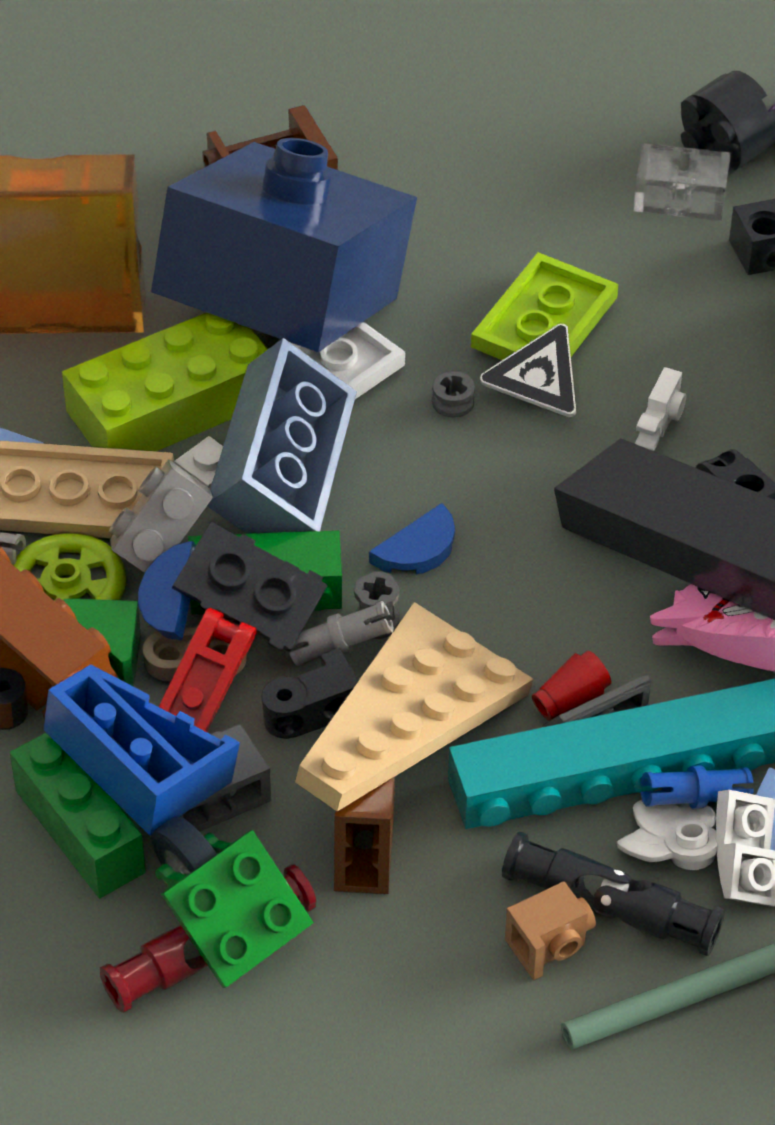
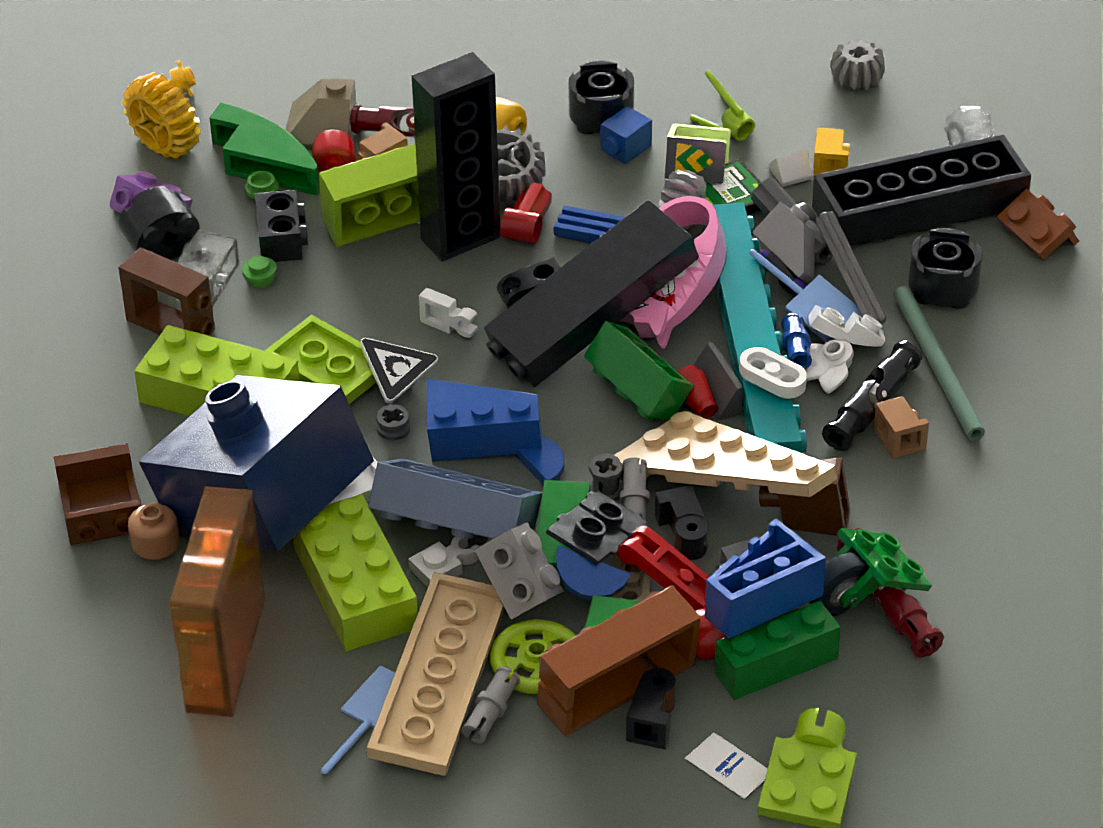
camera: 80 degrees left, 5 degrees down
(449, 459) = (480, 421): none -> blue wedge
(475, 223) = (189, 364): none -> lime brick
(577, 745) = (773, 372): none -> white plate
(580, 609) = (637, 372): none -> green brick
(593, 148) = (148, 272): none -> reddish brown window
(701, 234) = (259, 271): none -> bright green plate

